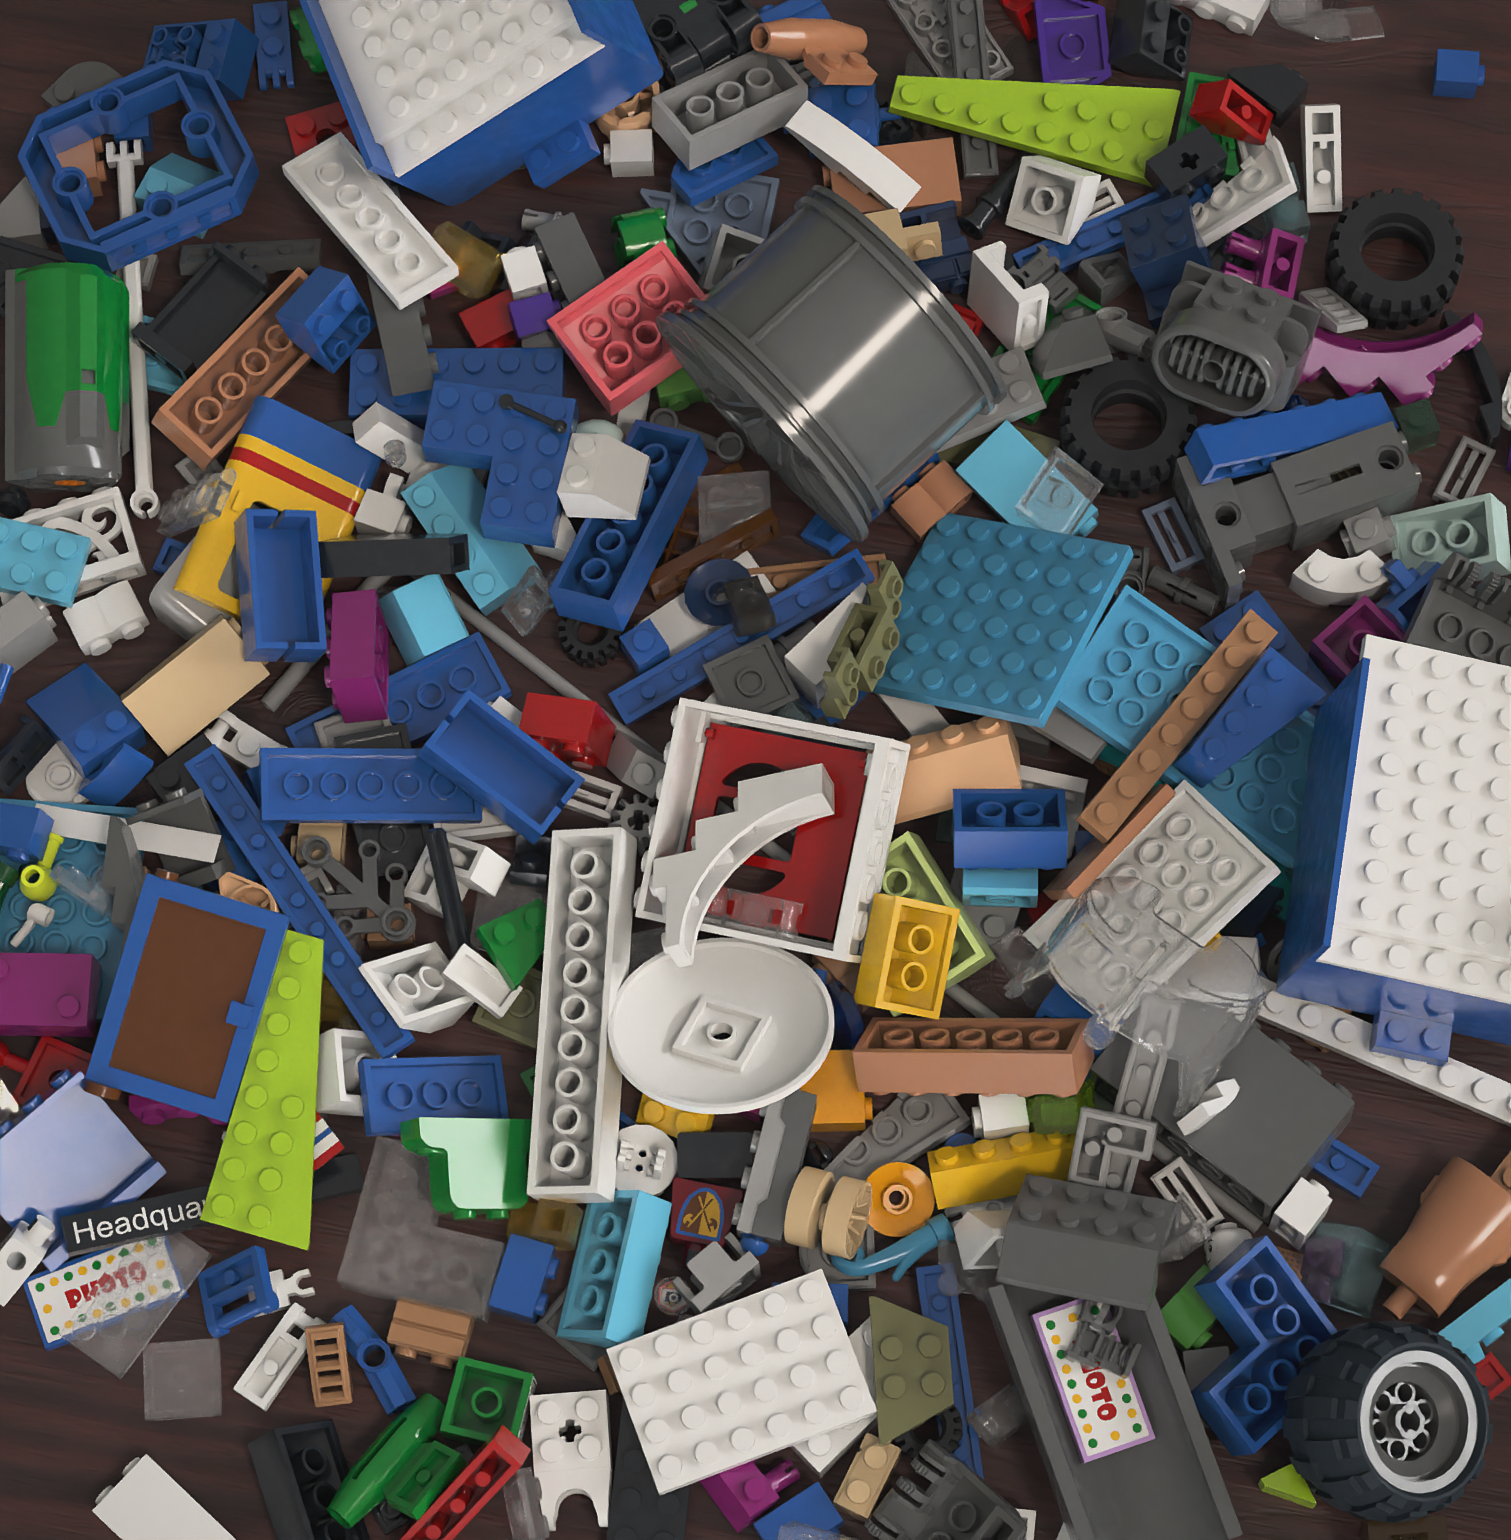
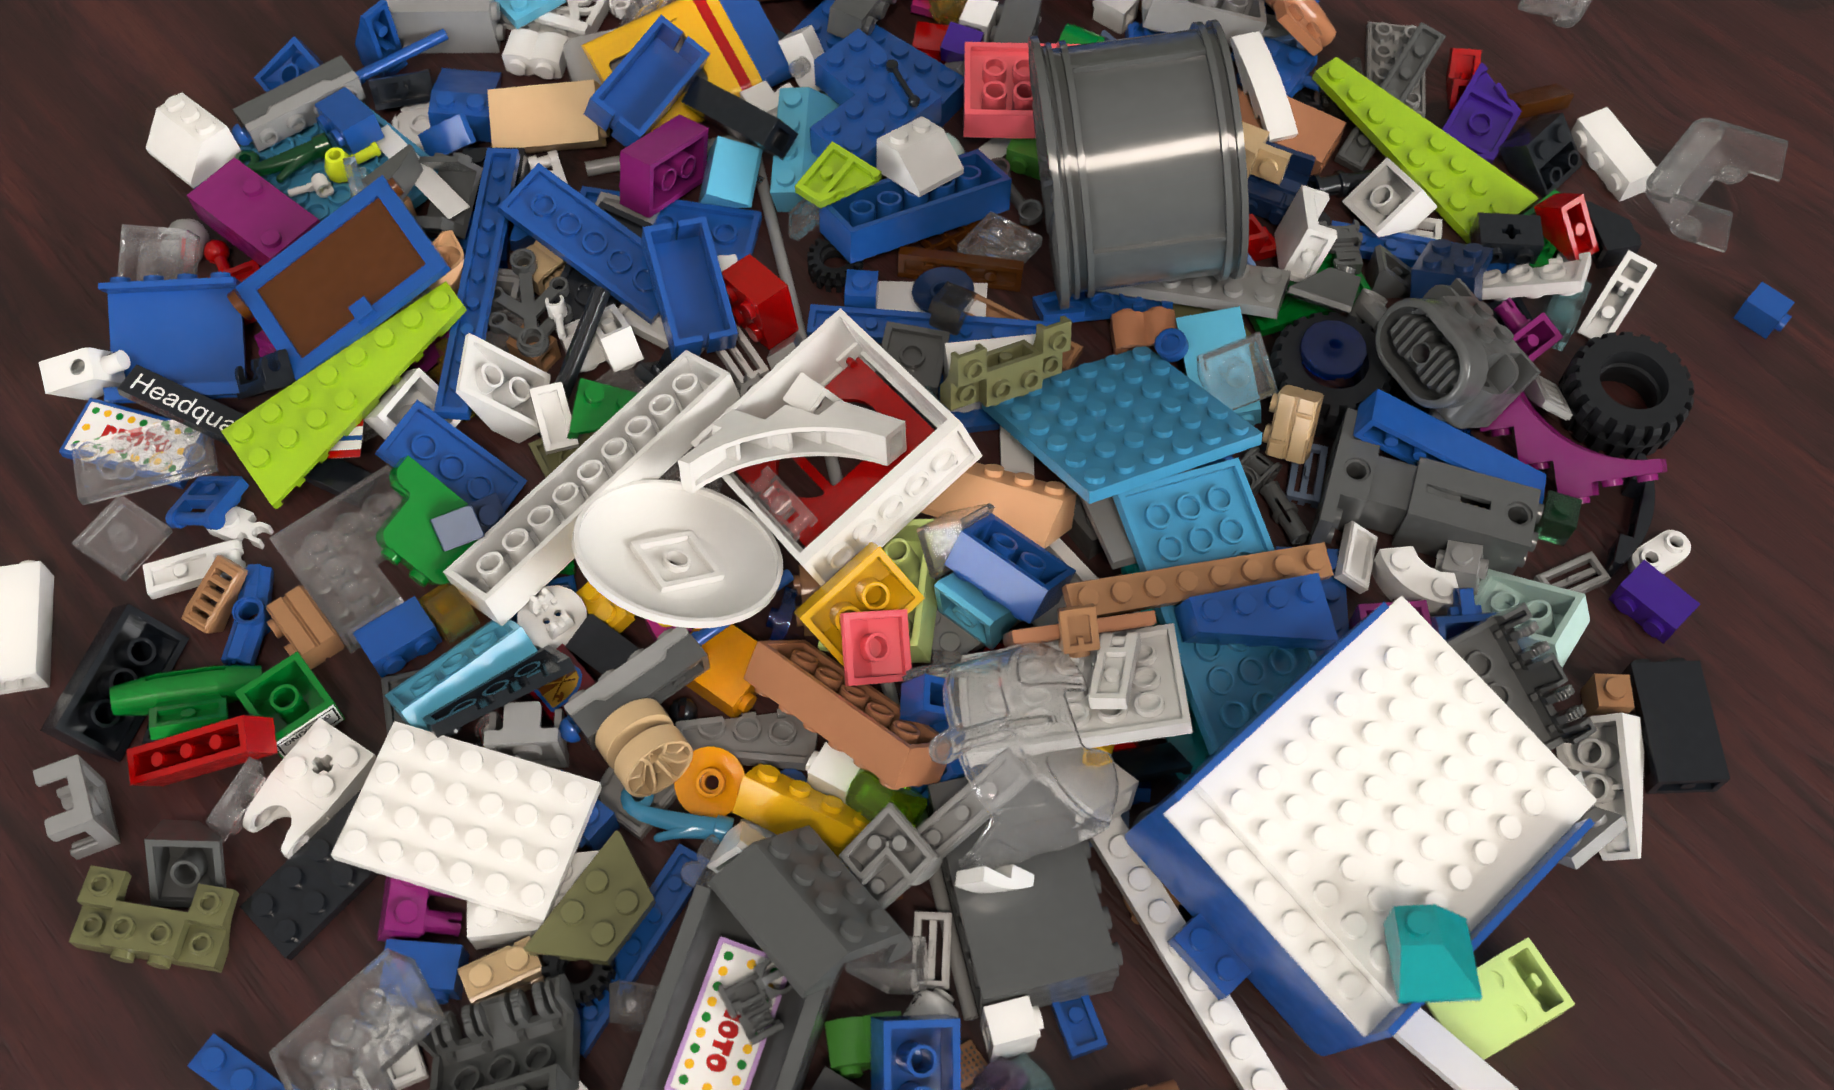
camera: 30 degrees right, 10 degrees down
(187, 1139) = (270, 375): none -> black hinge
(399, 880) = (557, 313): none -> white hand
(507, 1134) = (467, 522): none -> slope
(550, 559) = (836, 176): none -> lime wing
(671, 1252) = (499, 690): none -> black wing
(708, 795) = (809, 395): none -> white brick
(932, 833) = (941, 534): none -> clear slope
(956, 983) = (875, 646): none -> coral slope
(972, 501) = (1171, 345): none -> blue tile
(1040, 1001) = (923, 700): none -> blue brick
(1121, 849) = (1078, 630): none -> medium nougat bracket
(1122, 425) = (1331, 362): none -> clear blue plate
(1137, 505) = (1293, 423): none -> tan brick
(1176, 862) = (1114, 671): none -> white plate
(1273, 590) = (1356, 557): none -> white tile

